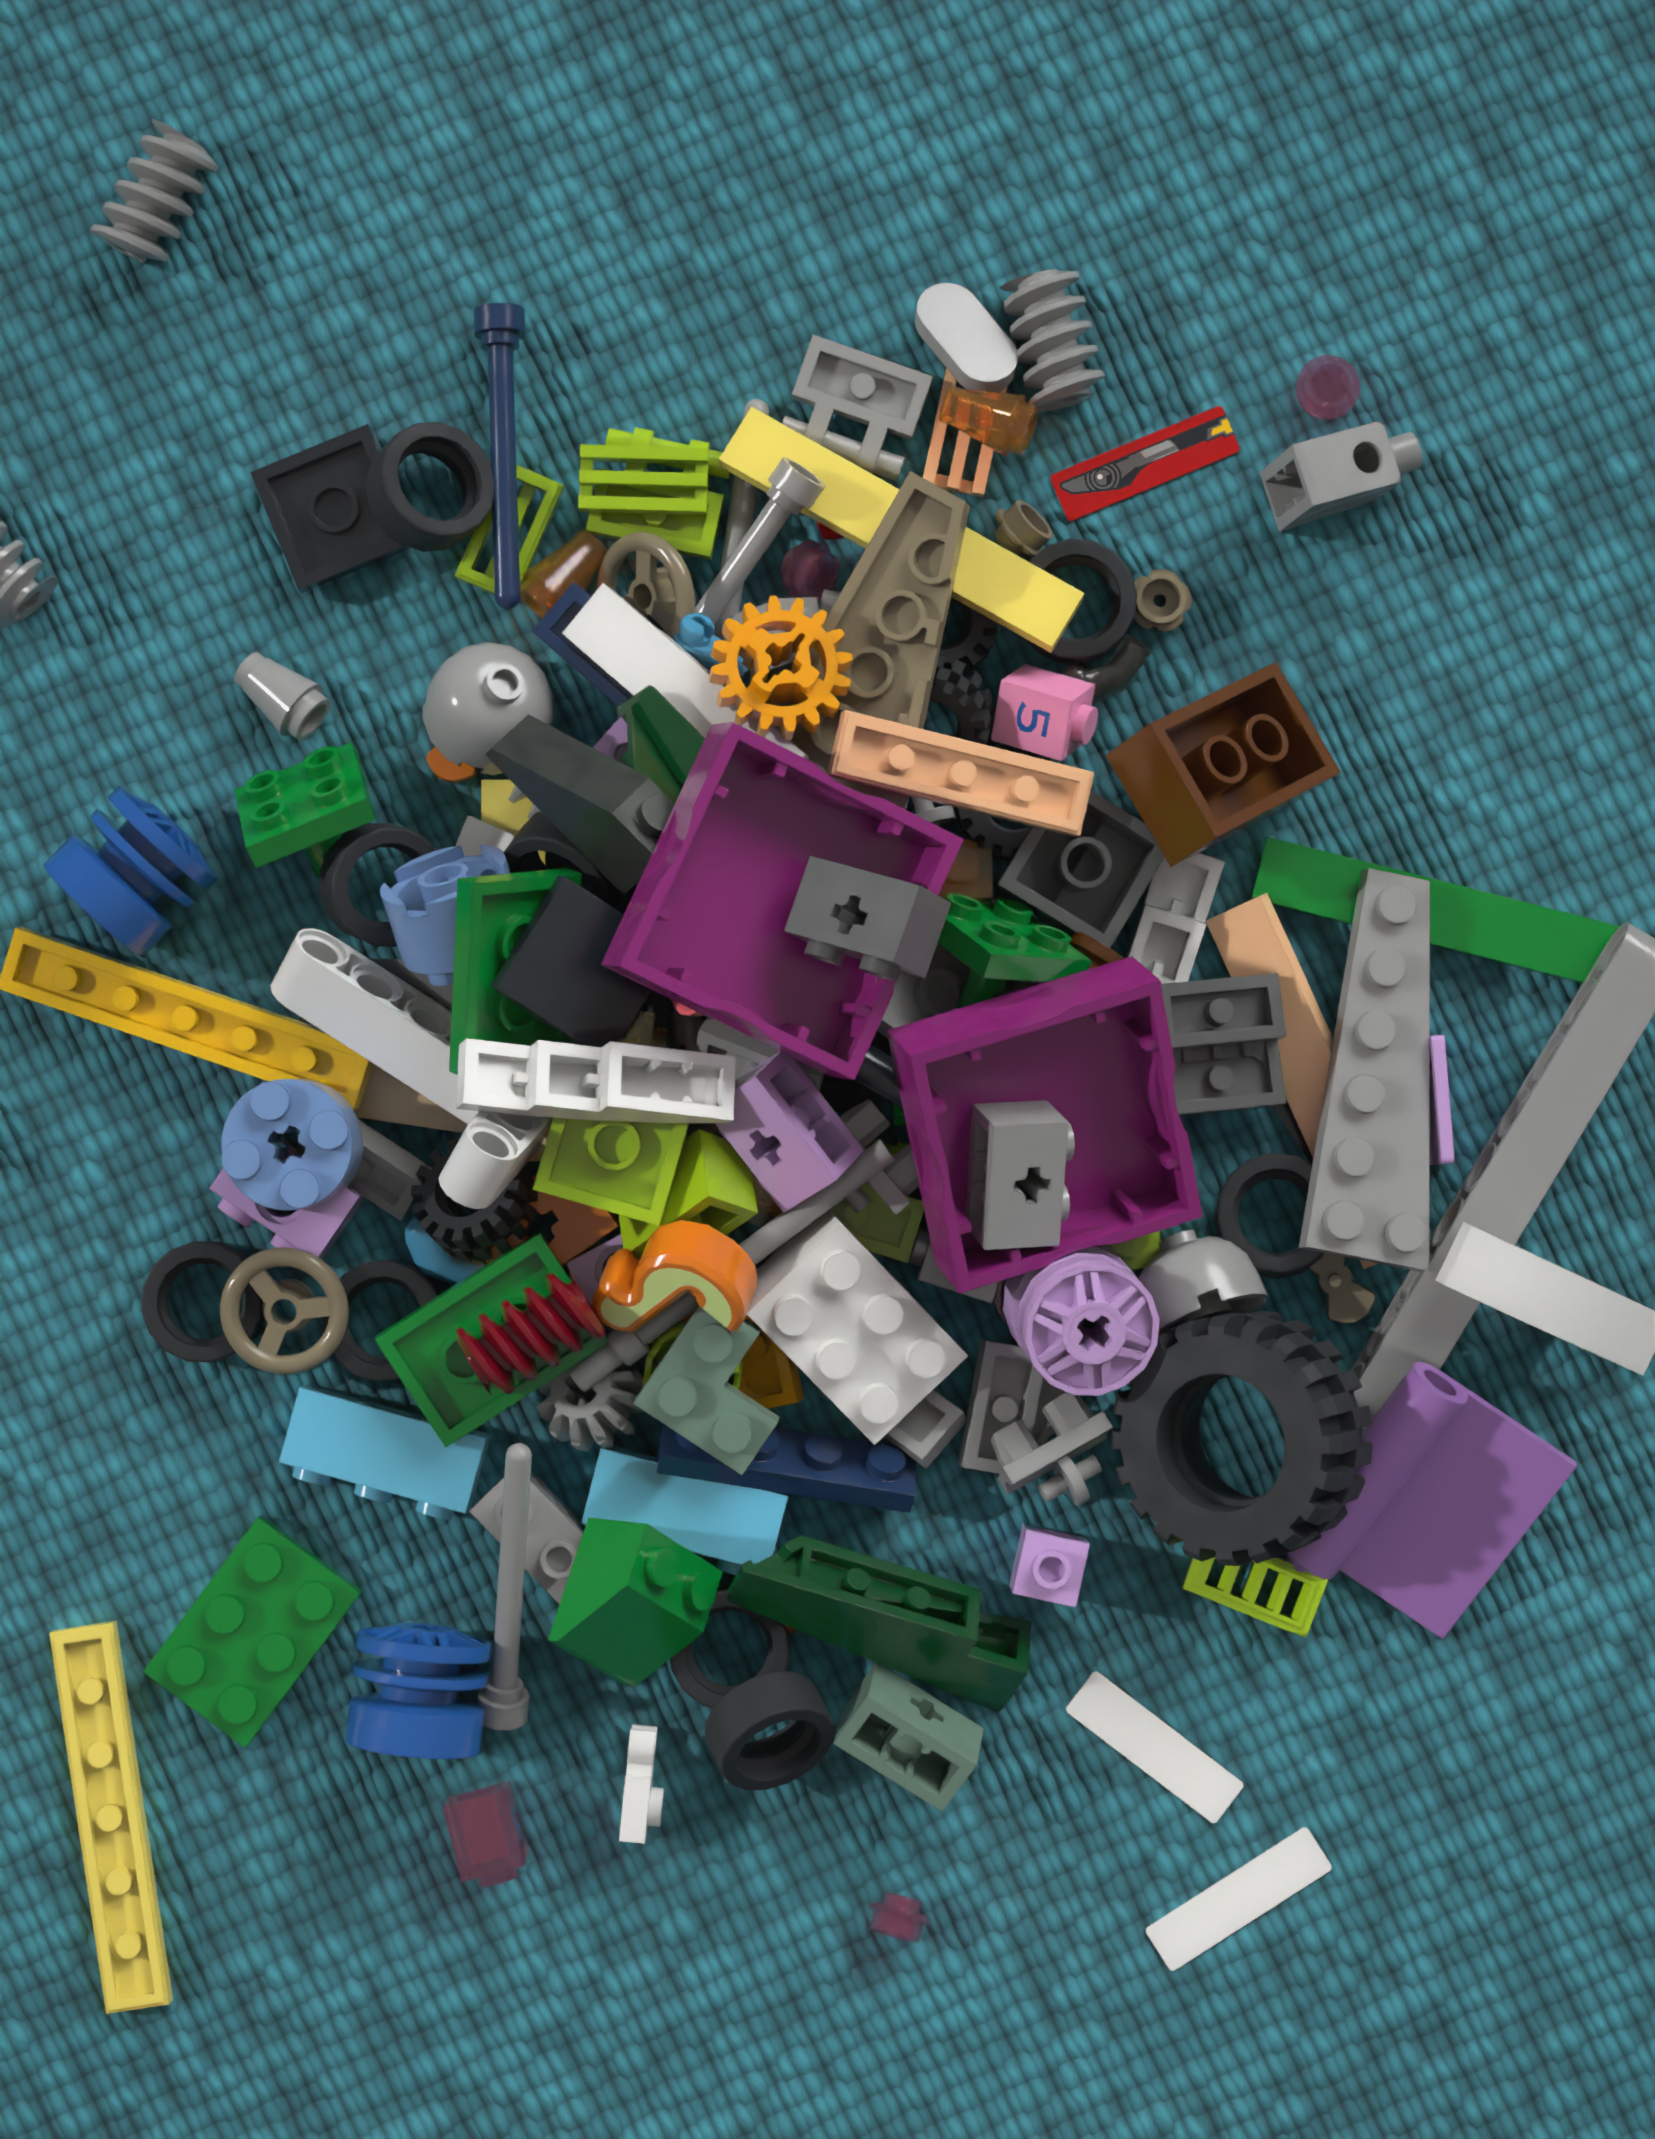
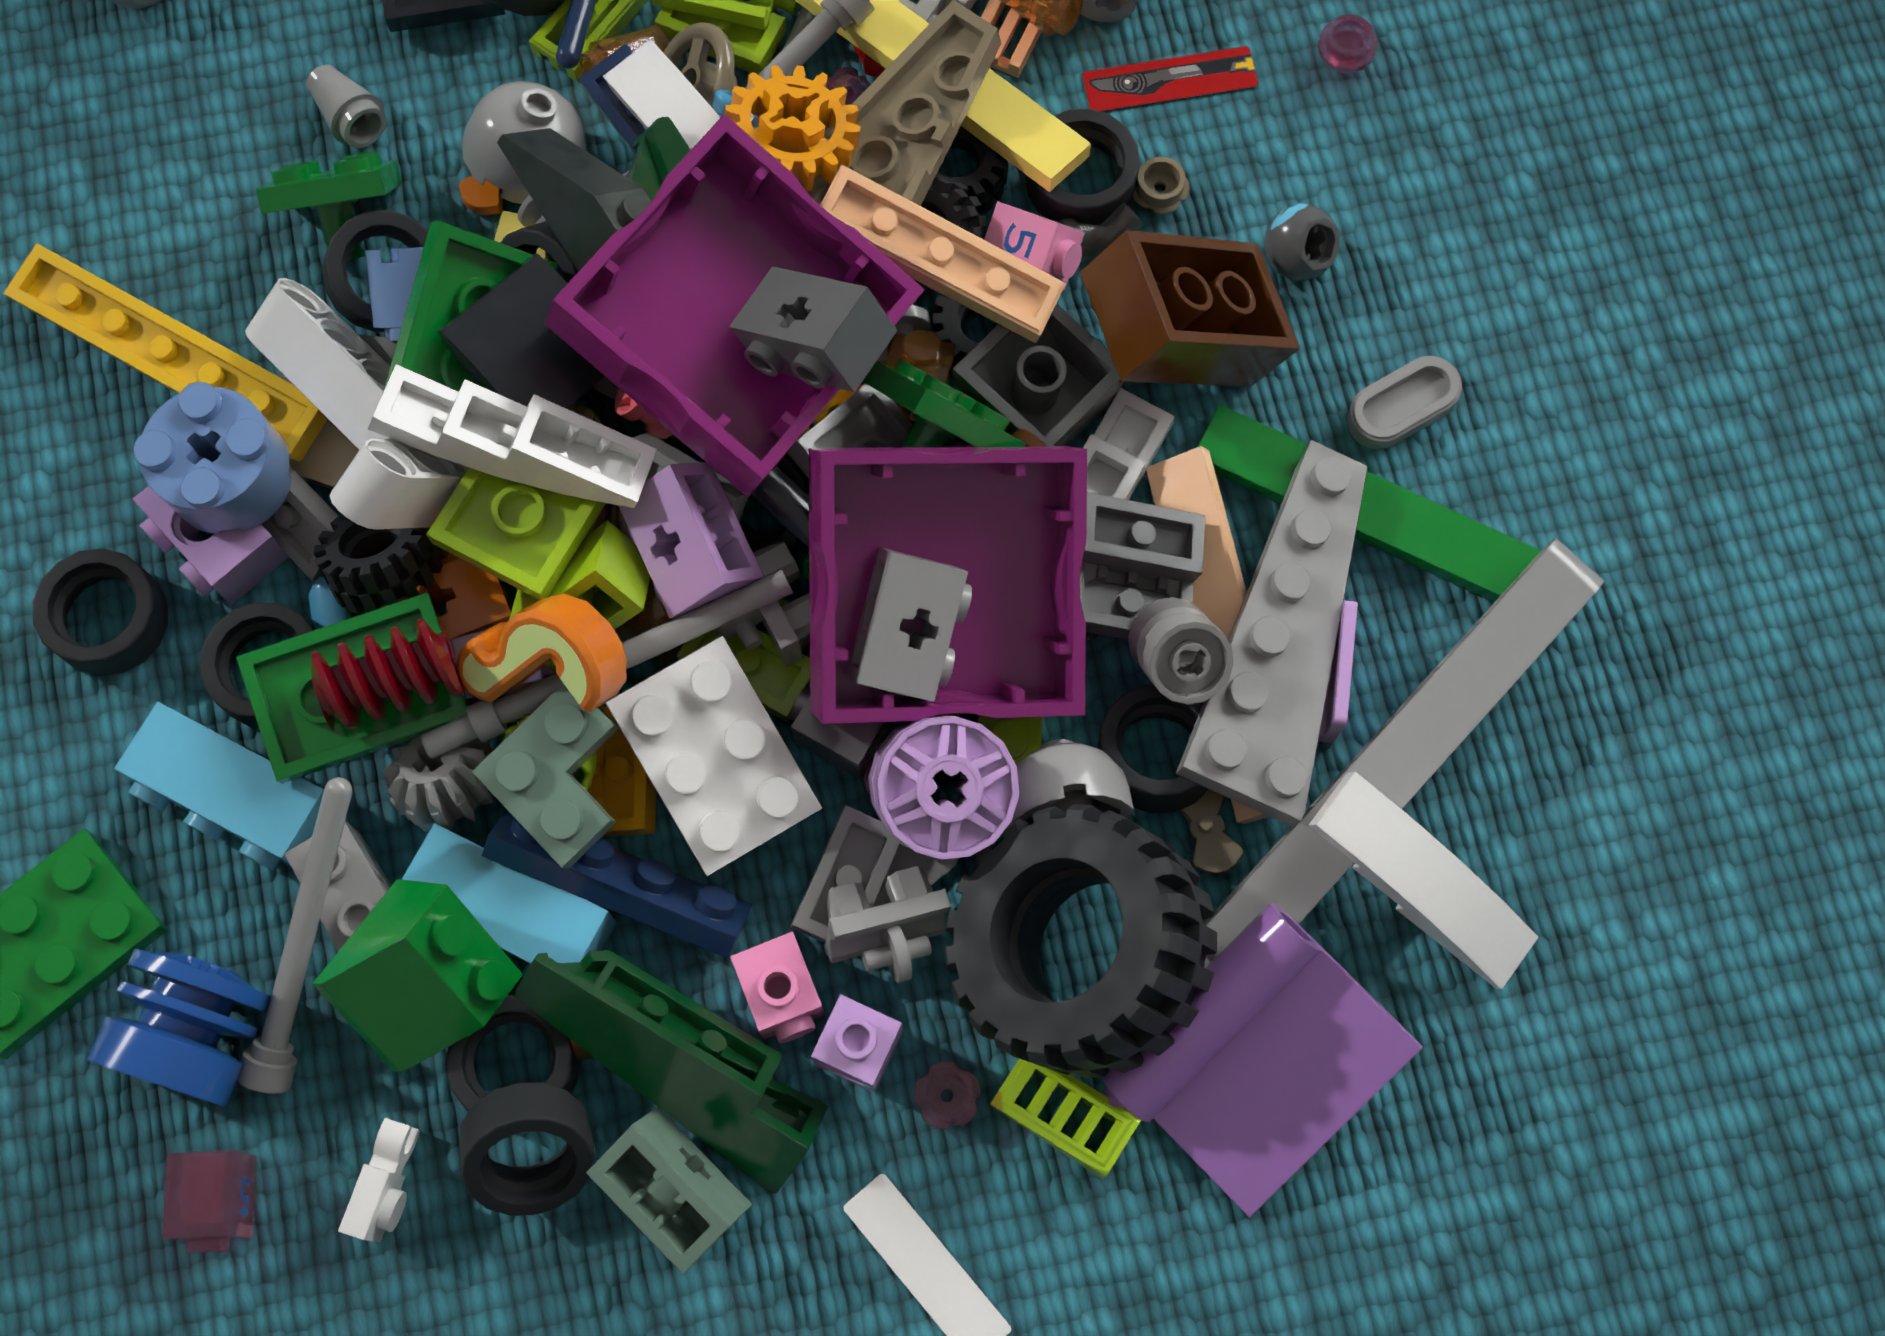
camera: 10 degrees right, 15 degrees down
(131, 871) = (153, 207): blue wheel -> none
(255, 1272) = (185, 640): dark tan piece -> none
(927, 1428) = (764, 877): light grey plate -> none
(962, 1528) = (778, 988): none -> bright pink brick
(1022, 529) = (1048, 95): dark tan plate -> none
(1137, 1607) = (947, 1077): none -> clear pink plate
(1281, 1128) = (1180, 650): none -> light grey wheel
(1320, 640) = (1301, 242): none -> dark grey piece
(1337, 473) = (1342, 102): light grey torso -> none
(1454, 788) = (1404, 402): none -> light grey tile

